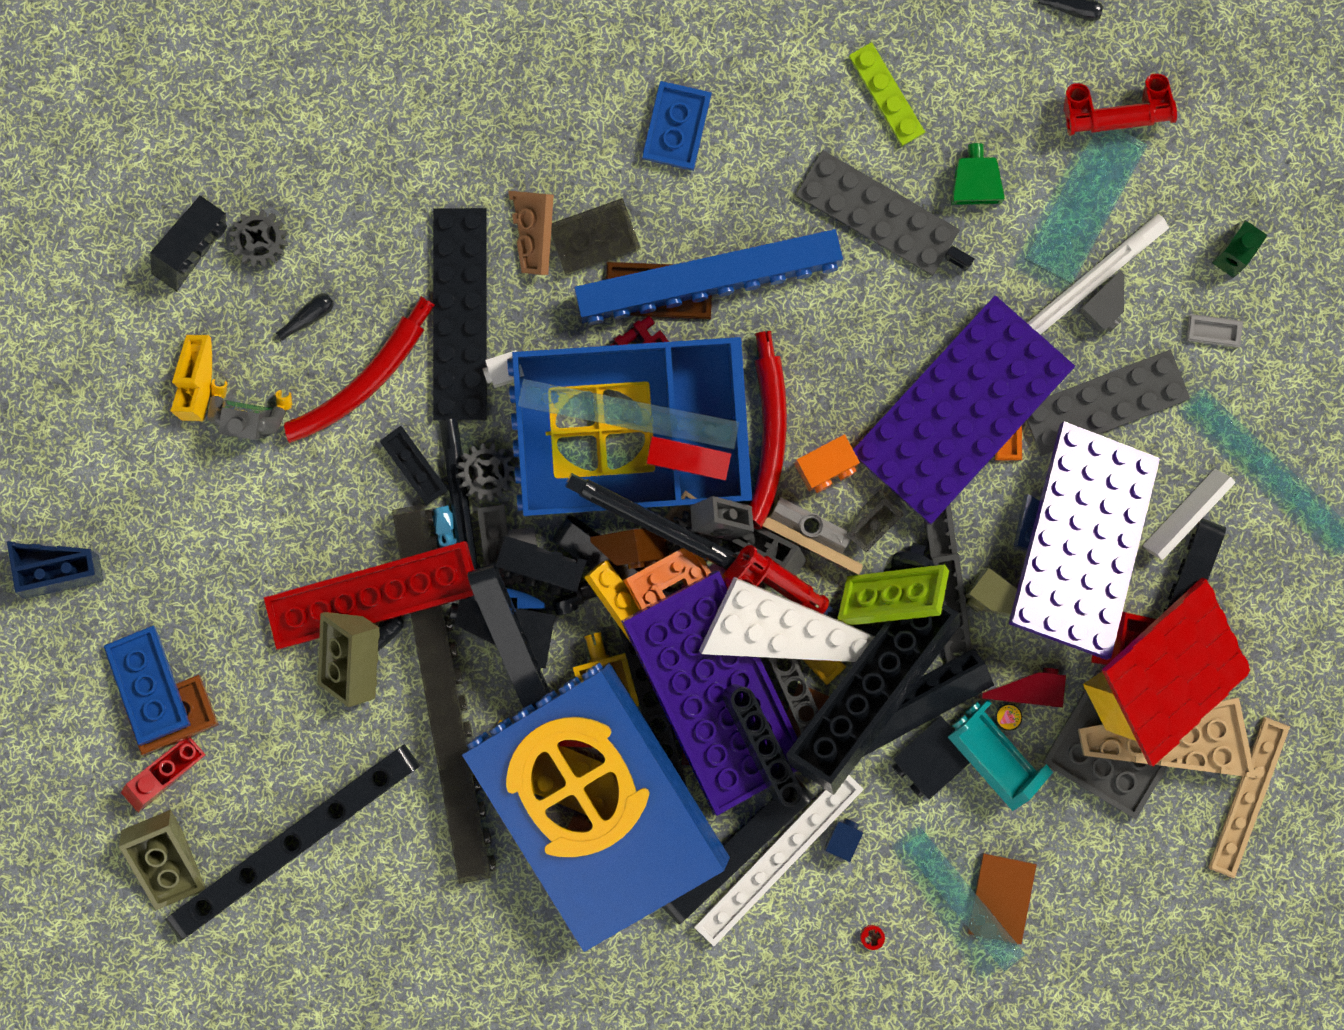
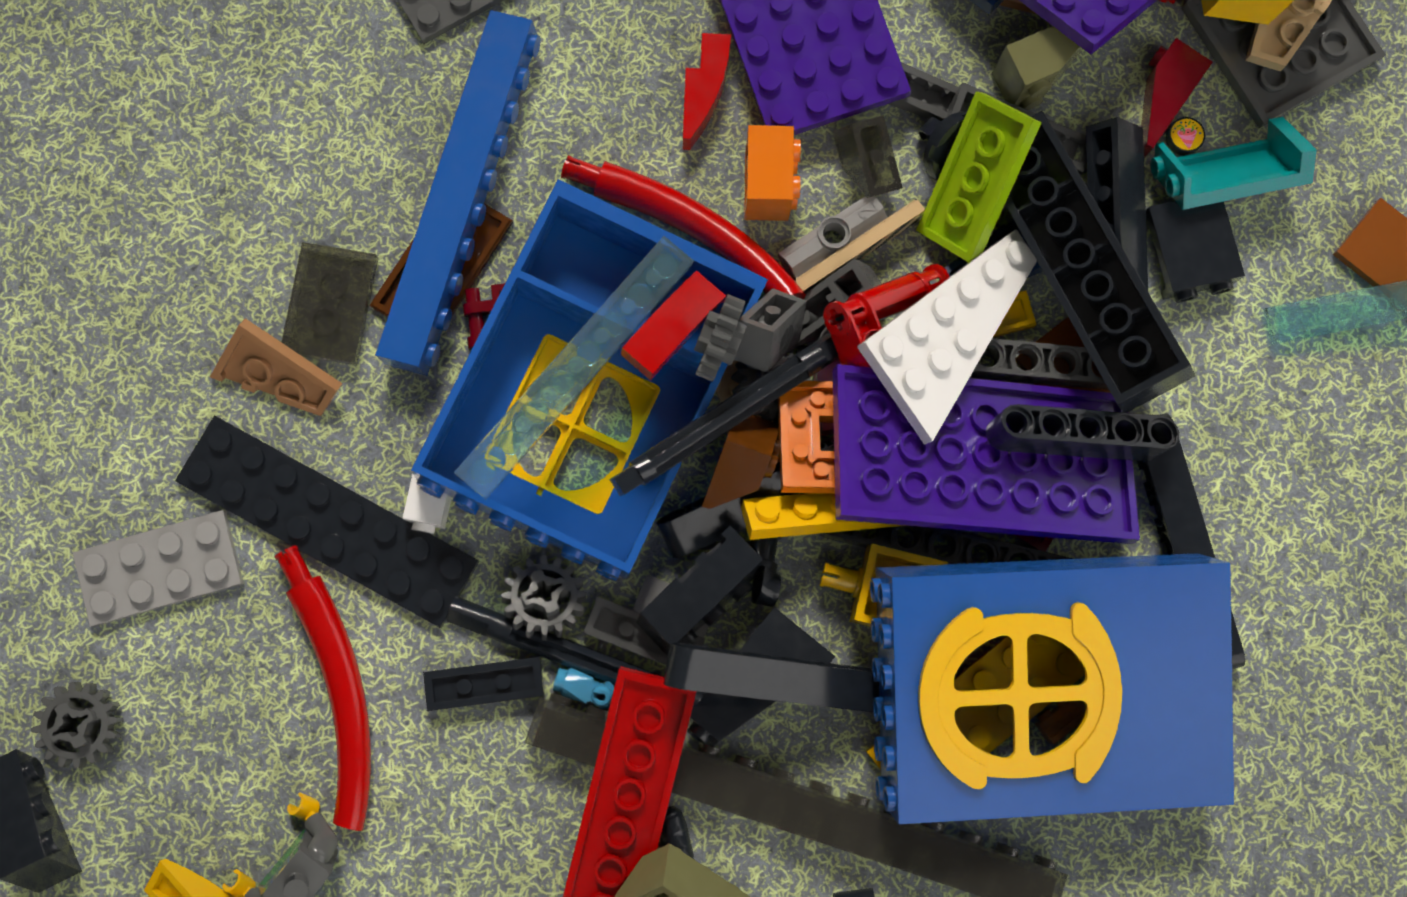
camera: 65 degrees left, 5 degrees down
(311, 312) = (212, 708): black piece -> none
(376, 230) = (158, 568): none -> light grey plate
(526, 601) = (736, 633): blue slope -> none
(676, 125) = (254, 132): blue plate -> none
(692, 491) = (720, 337): none -> dark grey gear
(776, 861) = (1226, 512): white plate -> none
(844, 839) = (1238, 405): dark blue brick -> none
(864, 391) = (704, 86): none -> red slope
(880, 940) = (1381, 430): red bush -> none

